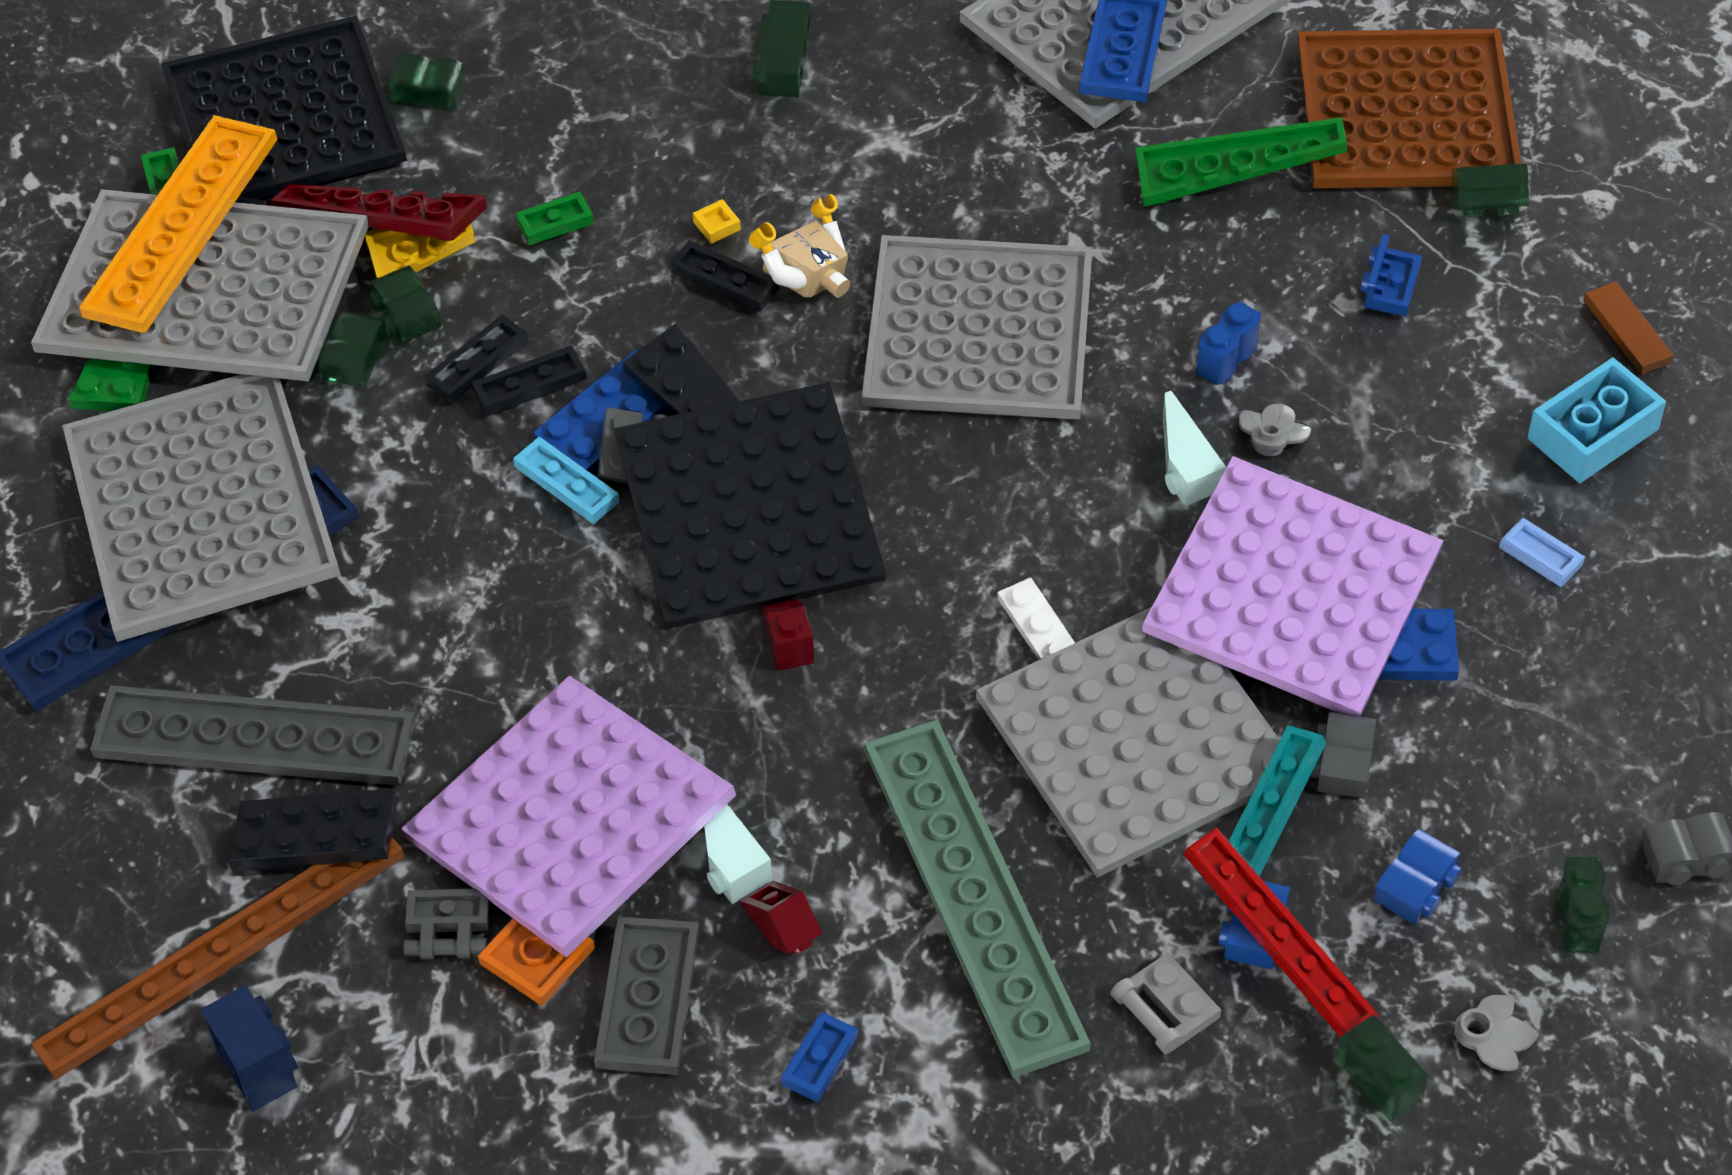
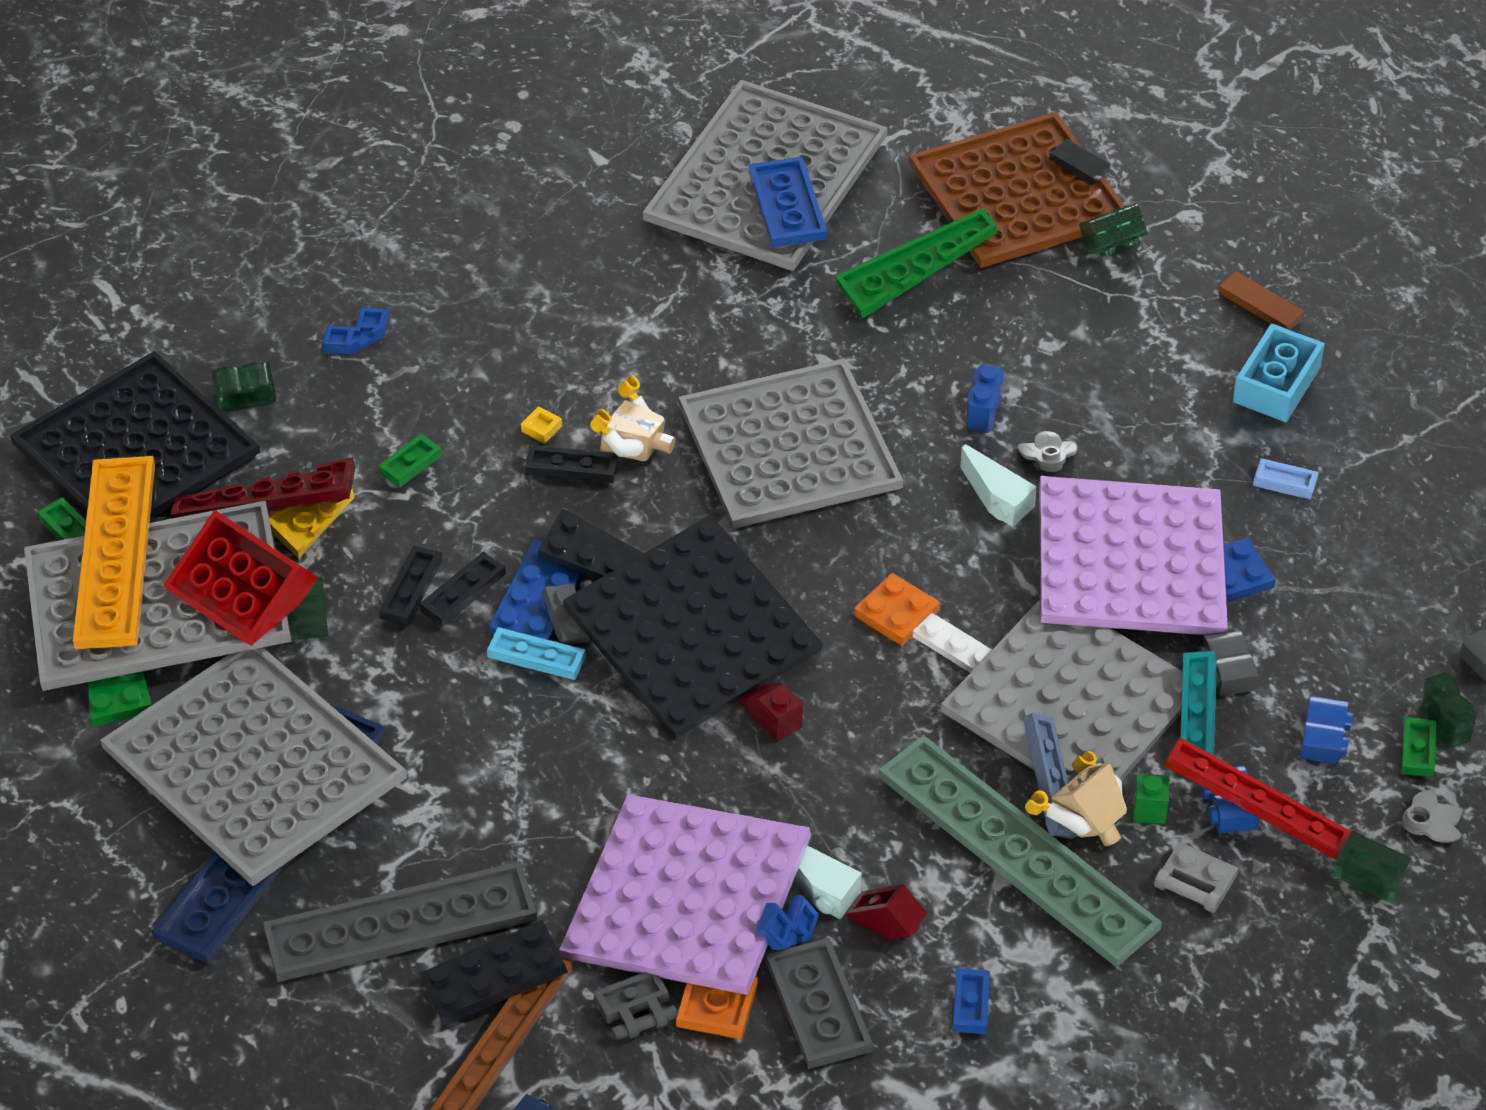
camera: 25 degrees left, 5 degrees down
(283, 293) = (238, 579): none -> red slope
(404, 303) = (329, 559): clear green brick -> none
(568, 63) = (347, 340): none -> blue tile
(669, 897) = (790, 928): none -> blue tile
(782, 48) = (519, 279): clear green brick -> none
(994, 559) = (896, 608): none -> orange plate
(1051, 821) = (1048, 764): none -> sand blue plate
(1076, 867) = (1087, 803): none -> tan torso
(1159, 888) = (1151, 799): none -> green brick
(1392, 278) = (1076, 316): blue bracket -> none
(1492, 95) = (1079, 161): none -> black tile
(1523, 937) = (1418, 747): none -> green plate

